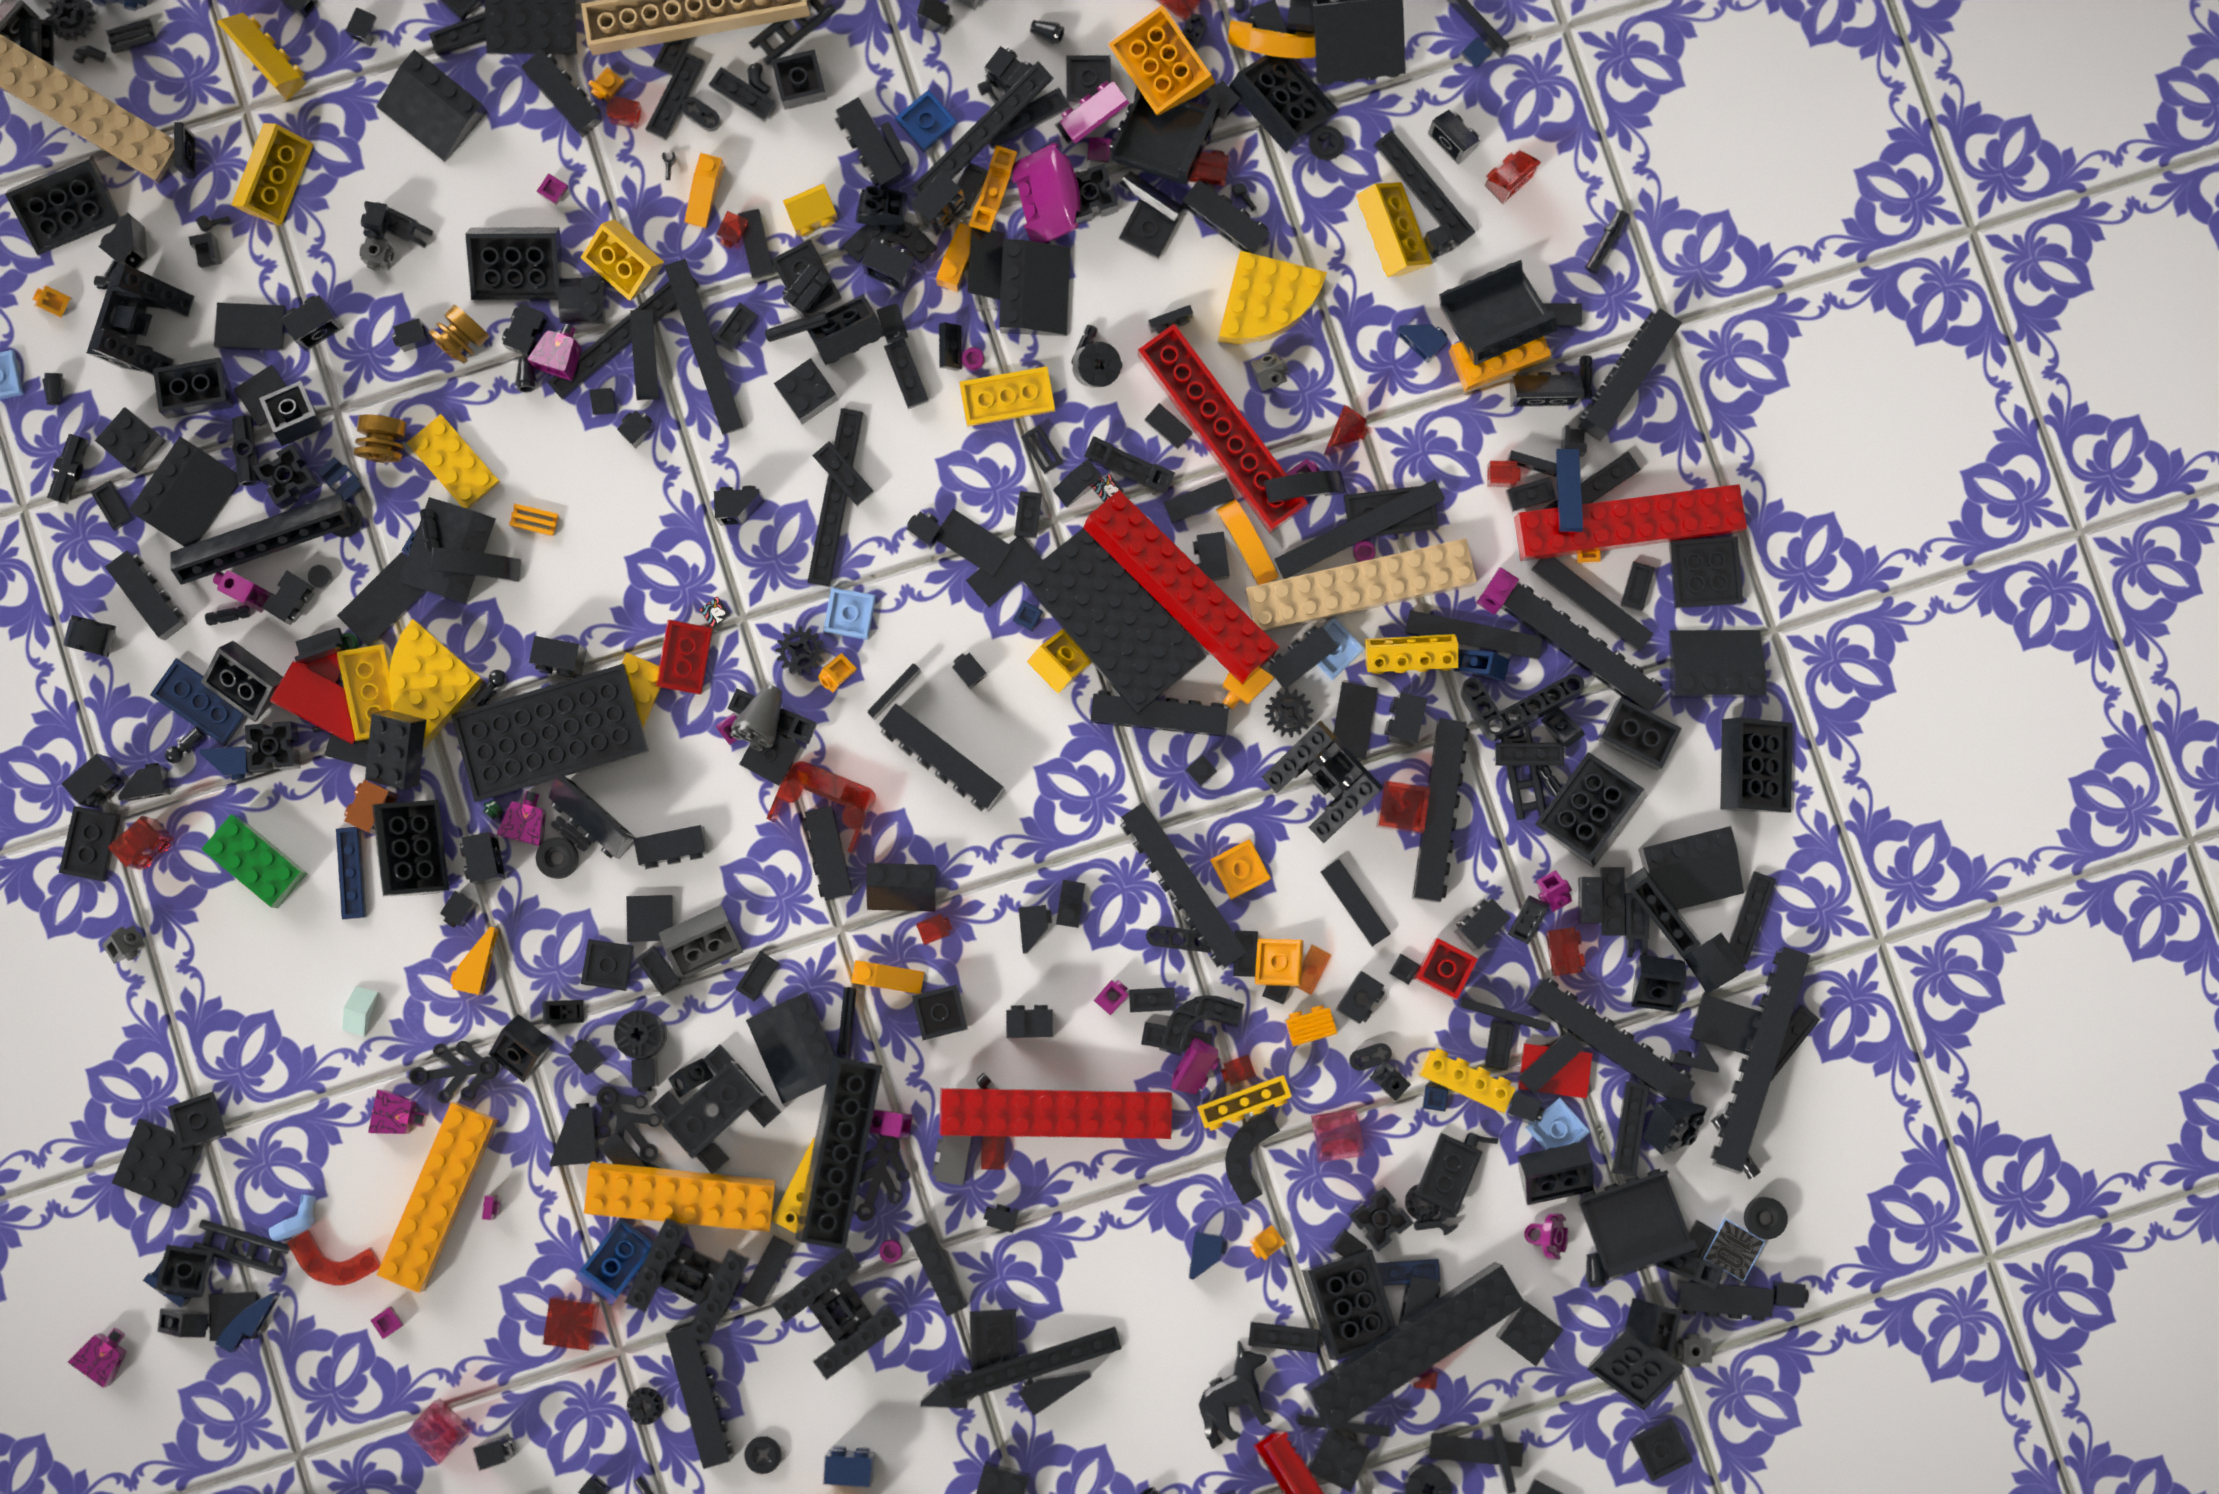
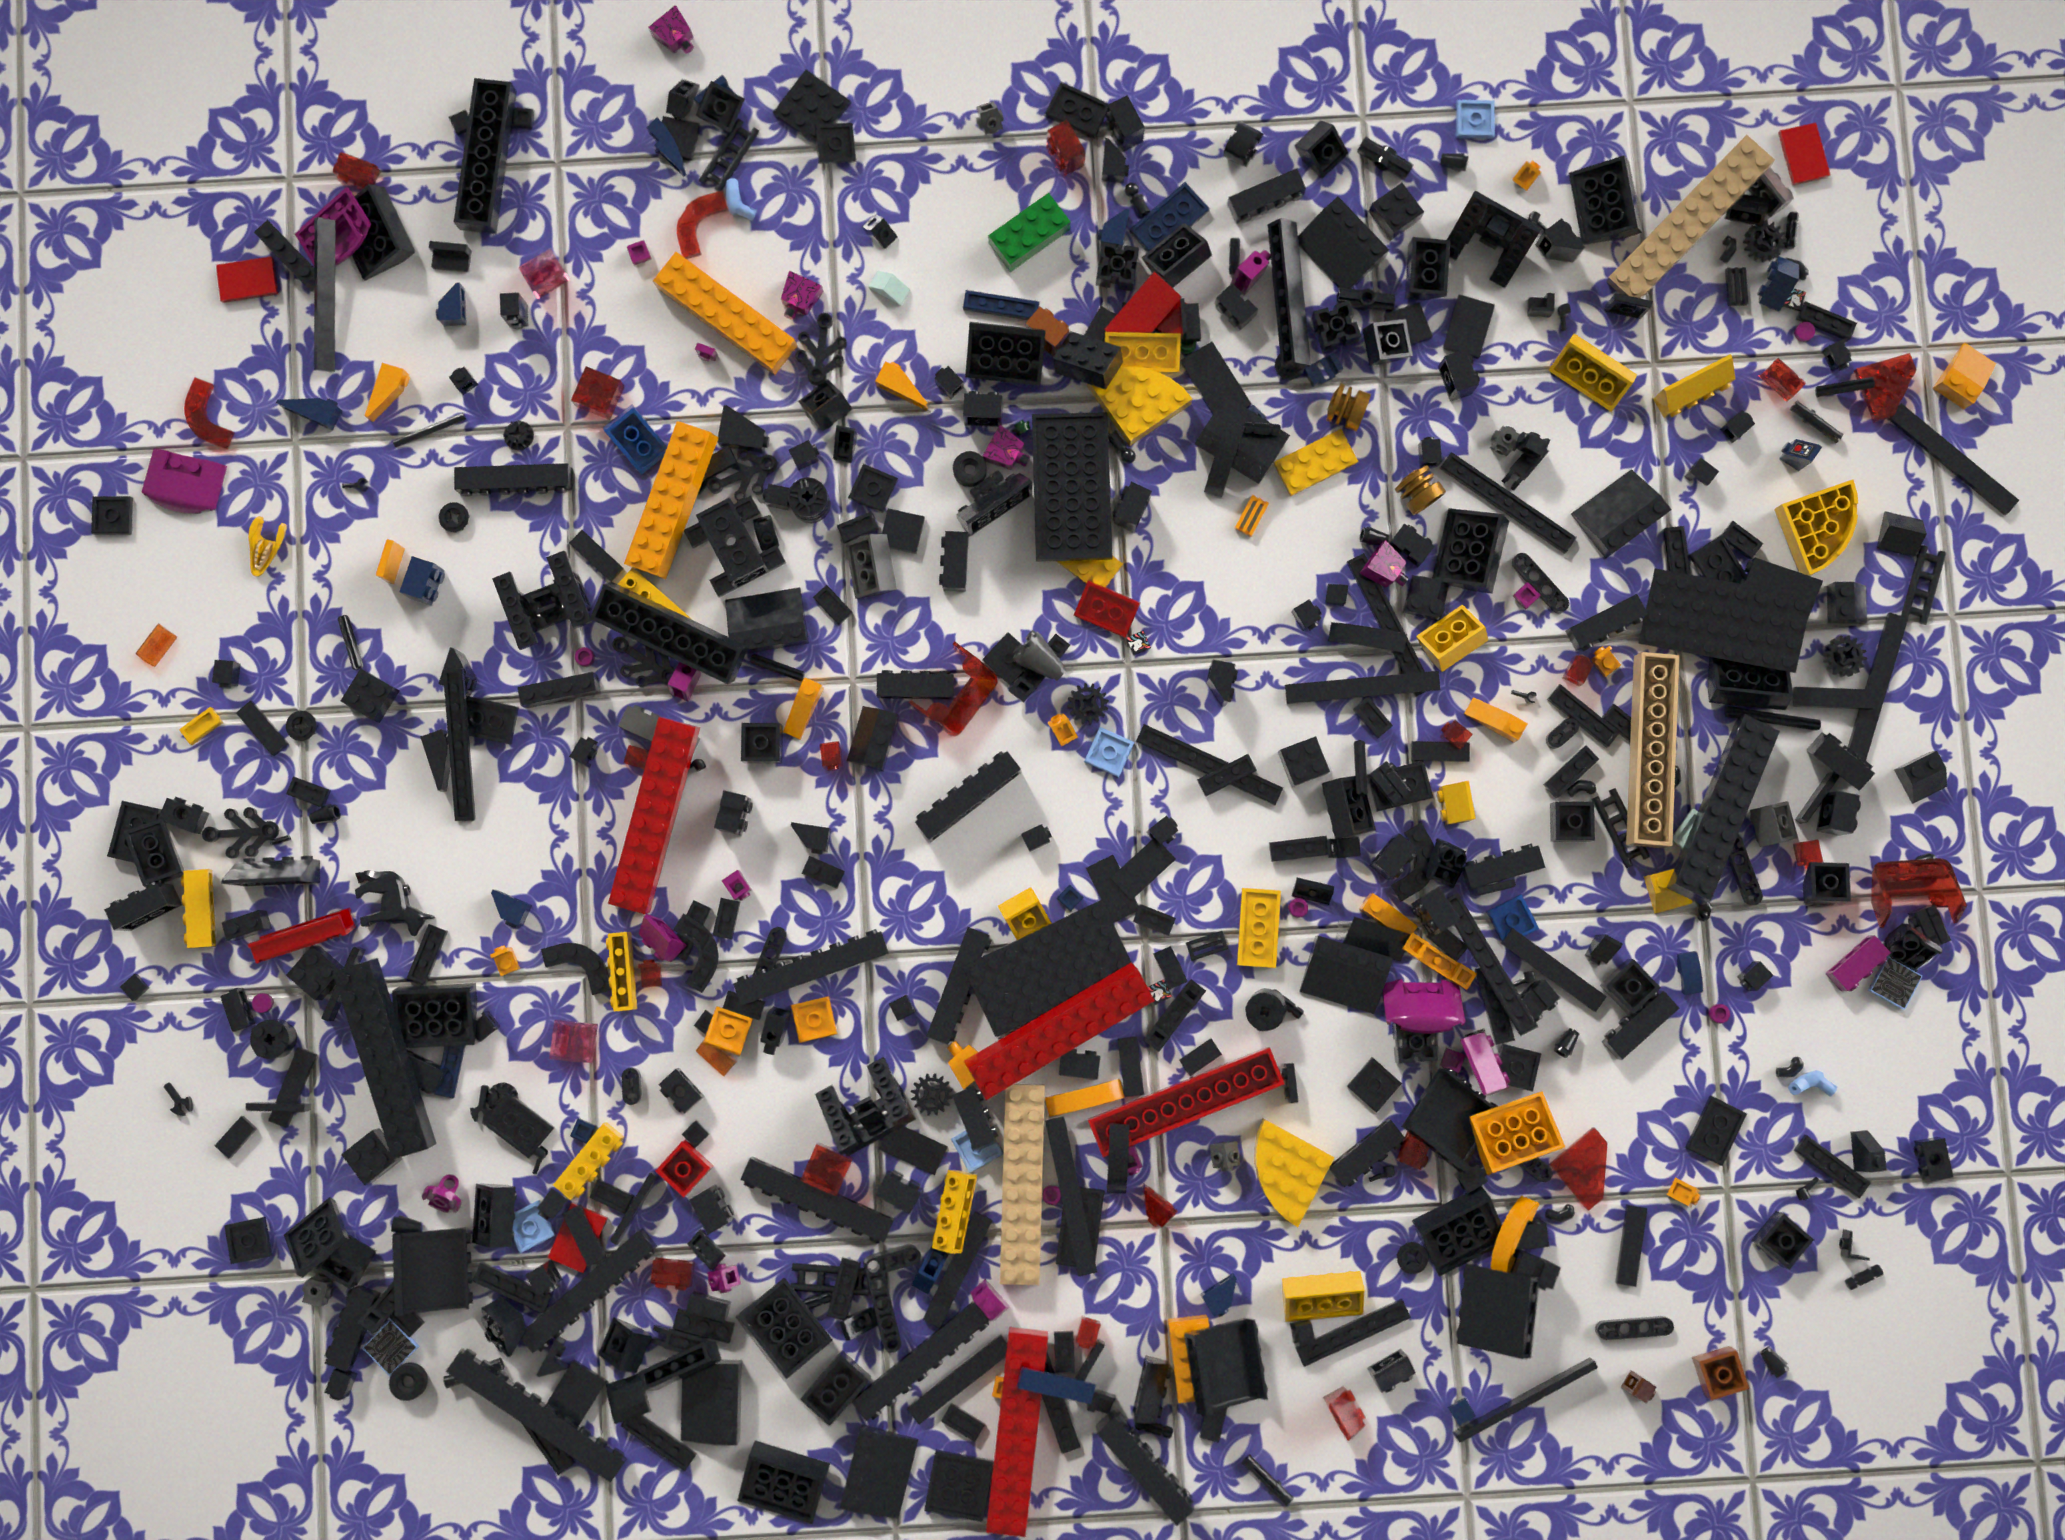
camera: 110 degrees right, 0 degrees up
(72, 545) = (1321, 148): none -> black slope
(112, 505) = (1347, 186): black tile -> none
(292, 1038) = (881, 231): none -> black bracket
(319, 576) = (1248, 335): black tile -> none
(448, 235) = (1508, 502): none -> black tile
(530, 175) = (1543, 580): none -> black beam
(668, 1268) = (608, 495): black piece -> none
(725, 728) = (1041, 628): magenta tile -> none
(895, 689) = (1034, 771): black tile -> none
(970, 63) = (1553, 970): none -> black tile
(1152, 195) = (1401, 1095): black tile -> none
(1255, 908) = (776, 1022): none -> black torso
(1310, 1026) = (669, 1043): light orange brick -> none
(1355, 902) = (760, 1107): black tile -> none
(1390, 1080) = (606, 1097): black brick -> none
(1394, 1219) = (486, 1053): black brick -> none
(1425, 1380) = (353, 1061): clear red slope -> none
(1609, 1093) = (544, 1278): none -> black brick

